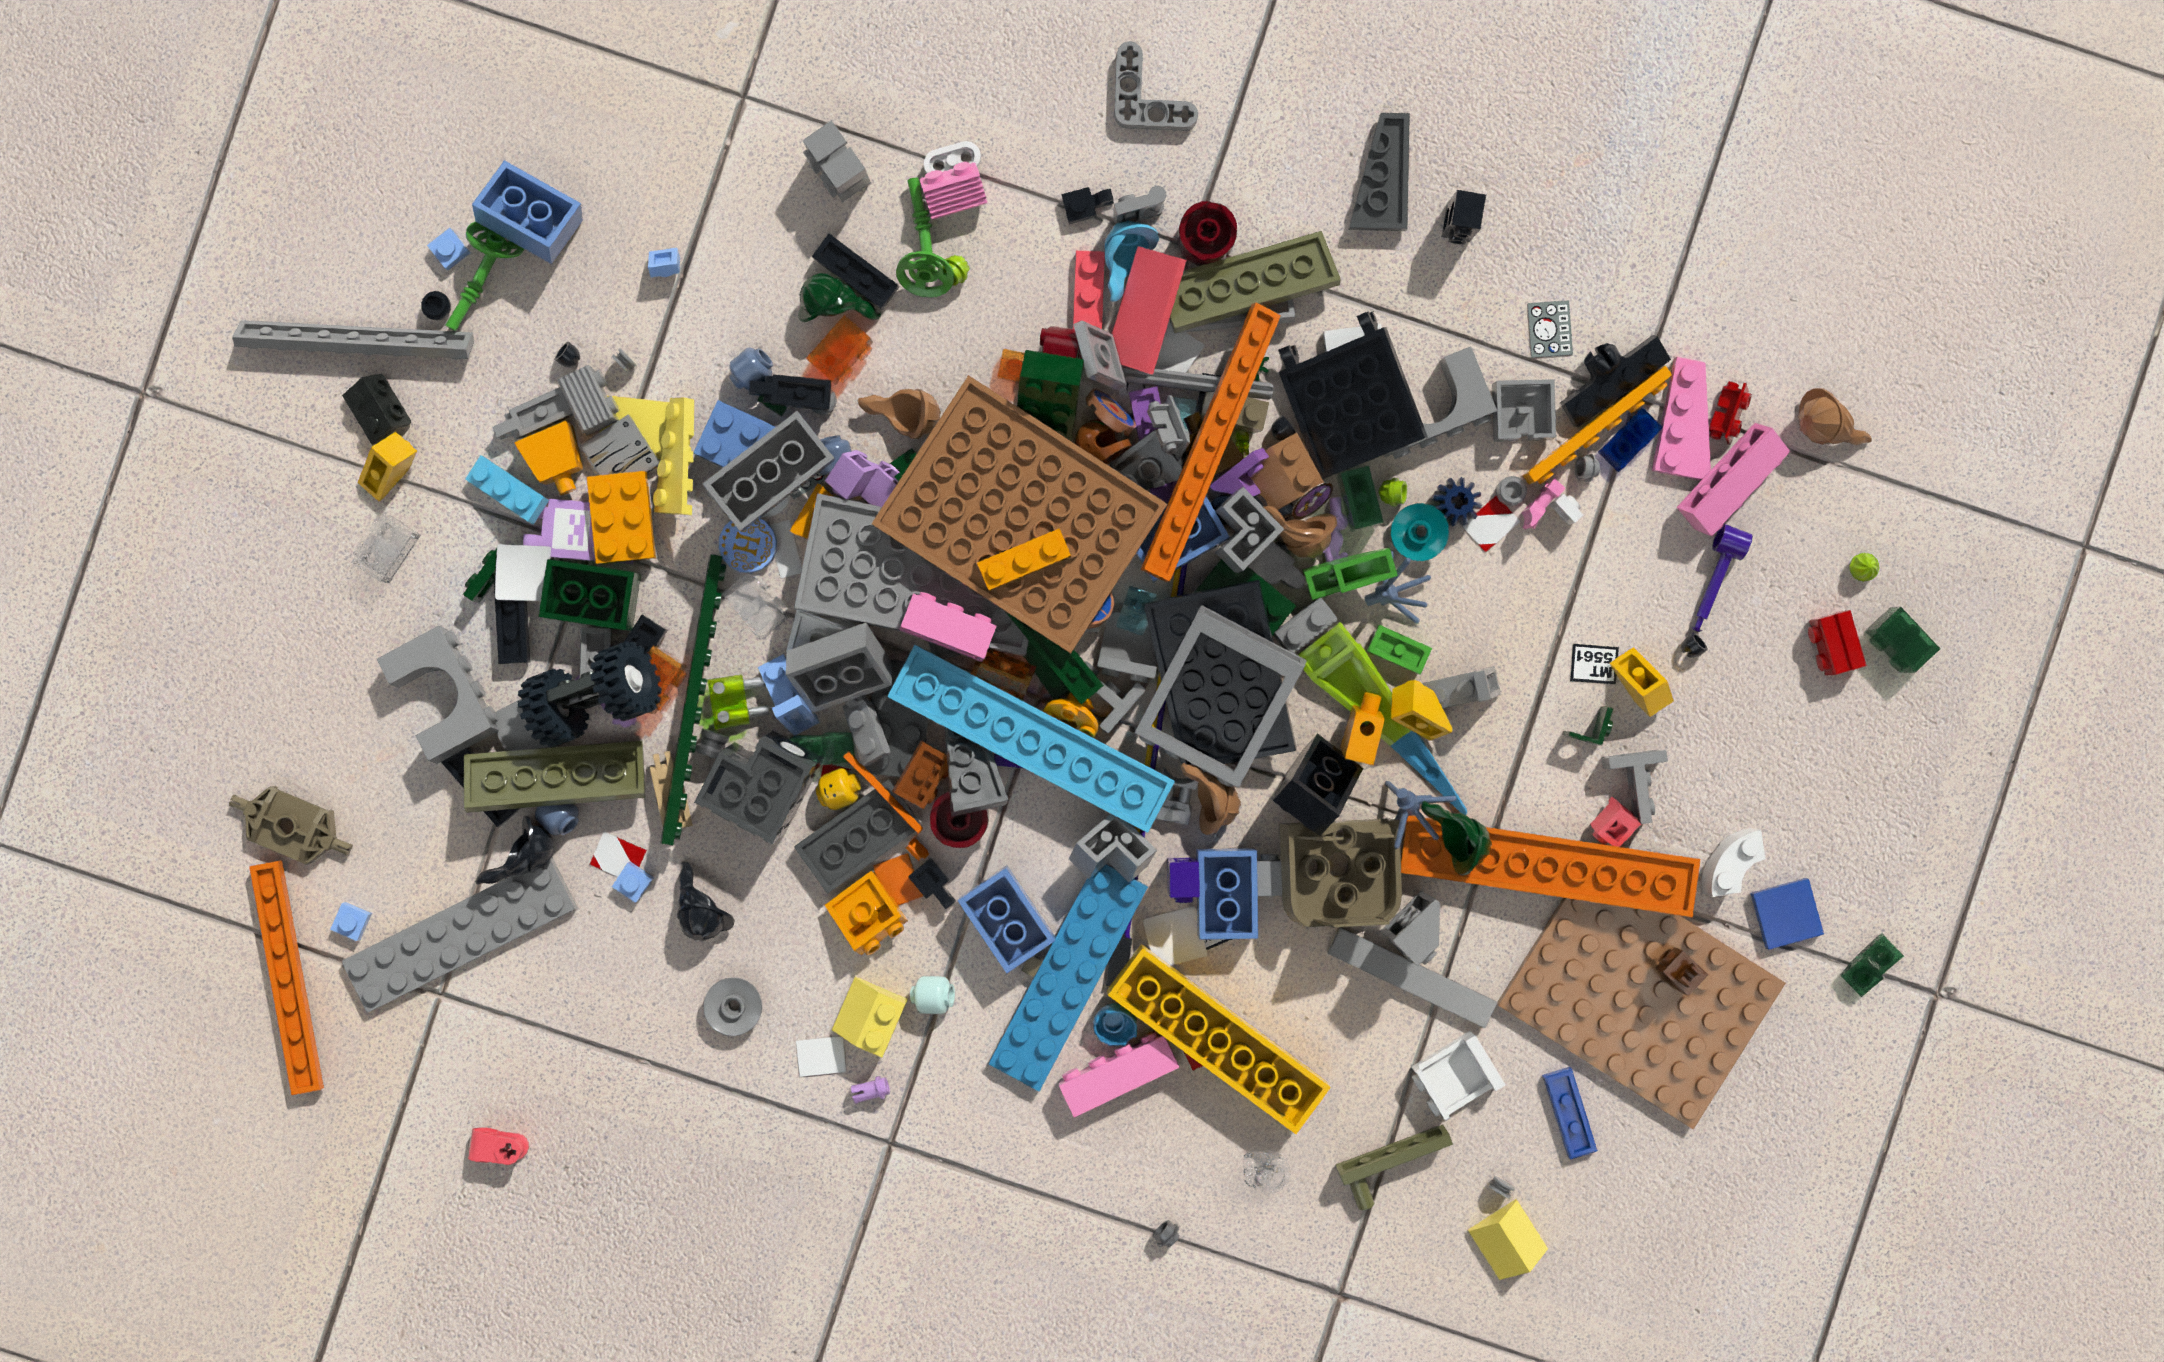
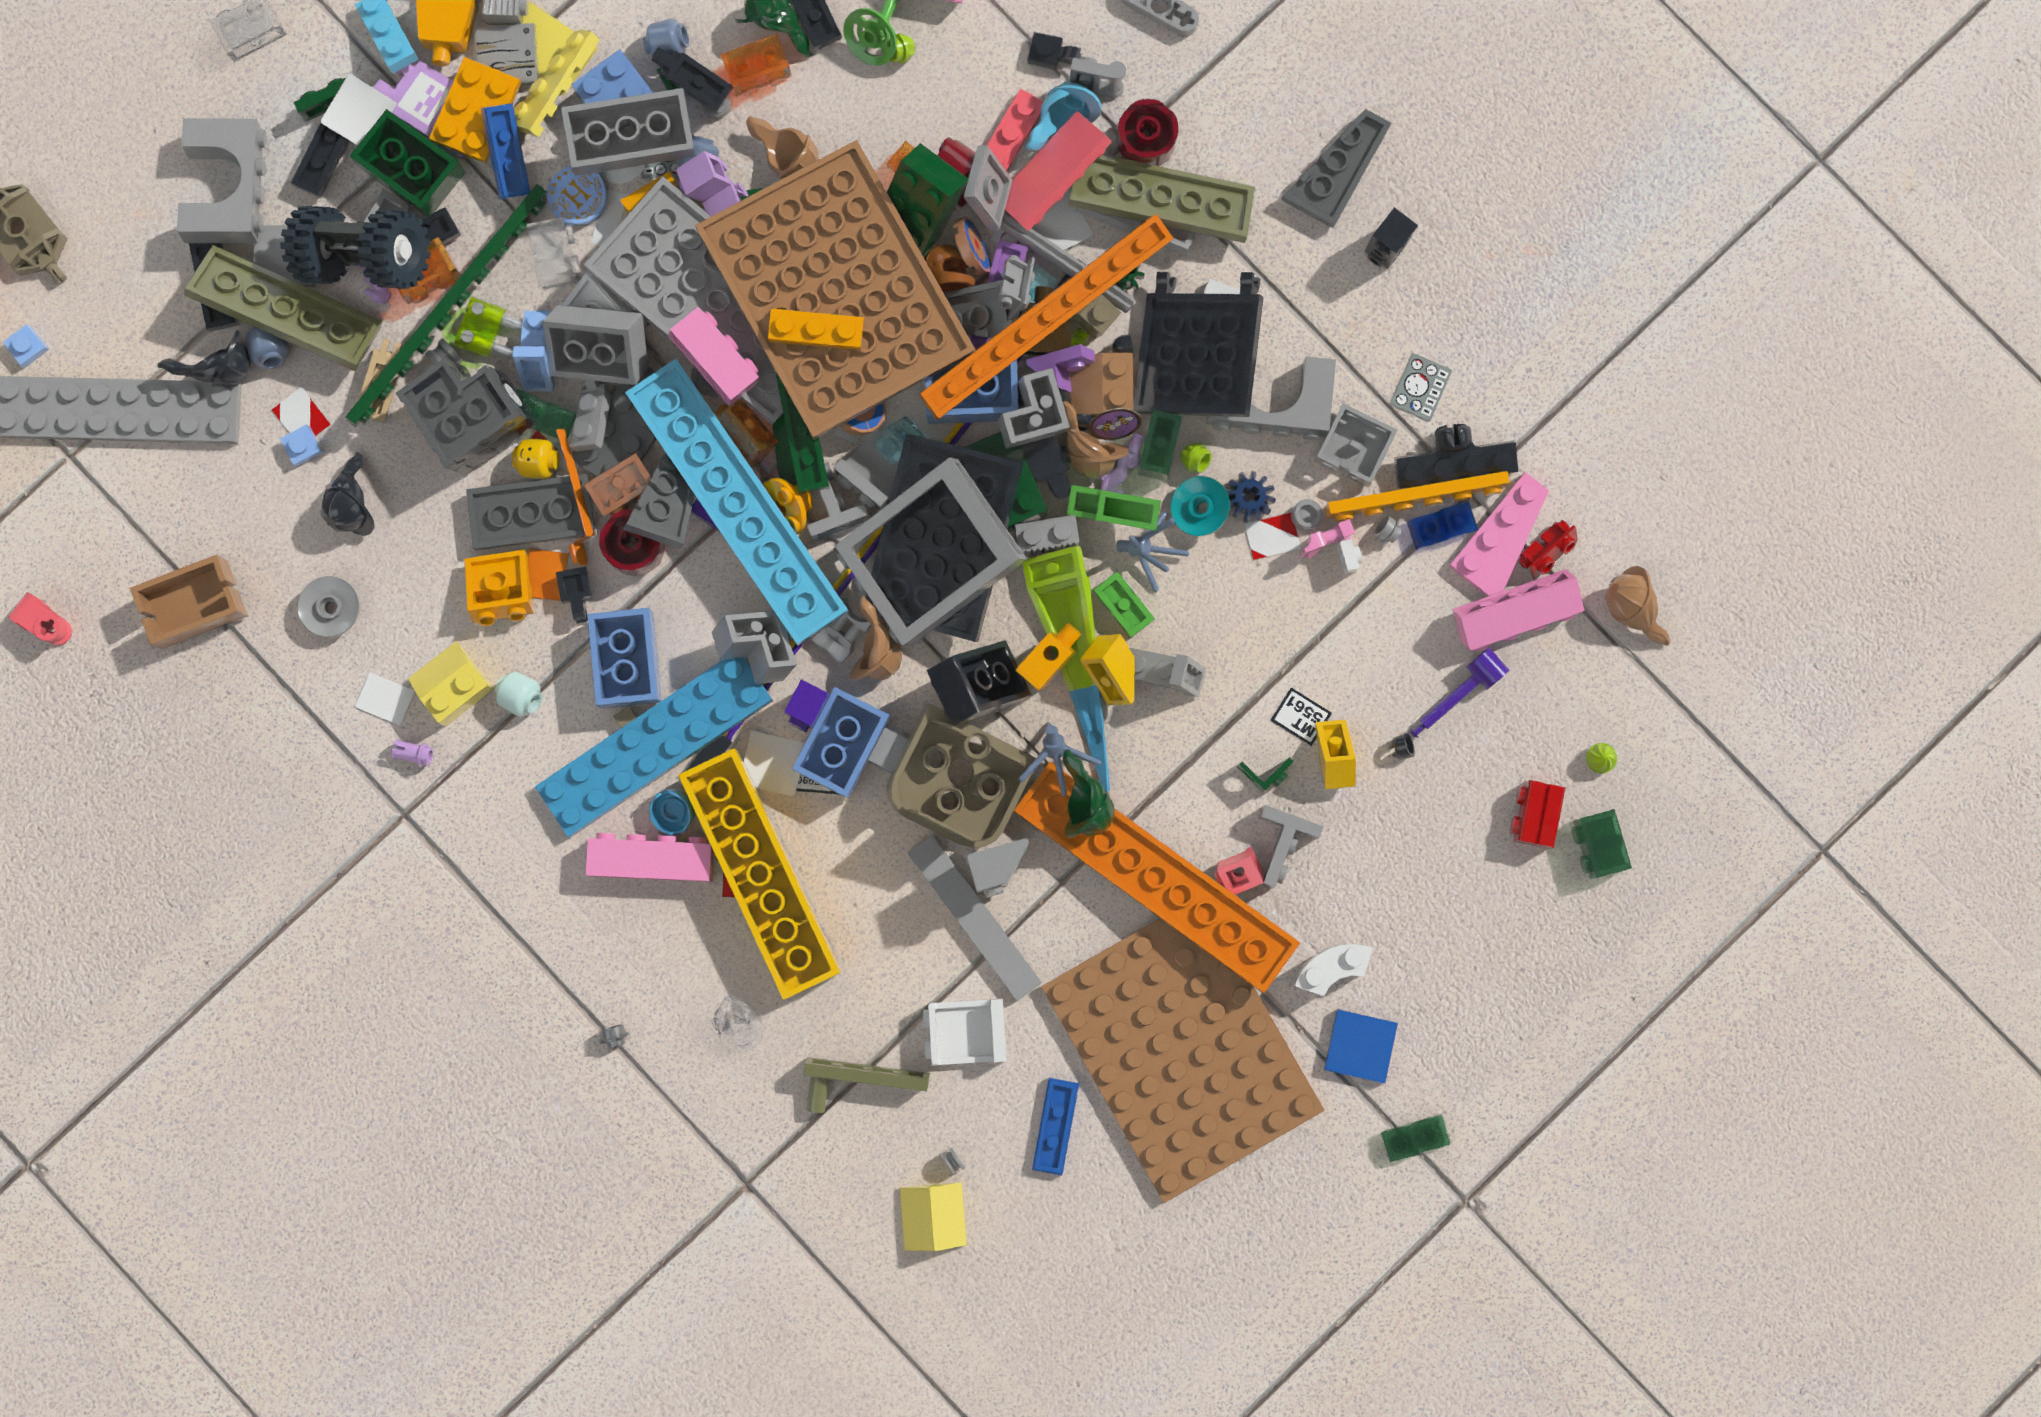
camera: 30 degrees right, 5 degrees down
(614, 1066) = (188, 602): none -> medium nougat piece
(667, 539) = (505, 151): none -> blue tile
(1680, 970) = (1228, 1040): reddish brown brick -> none

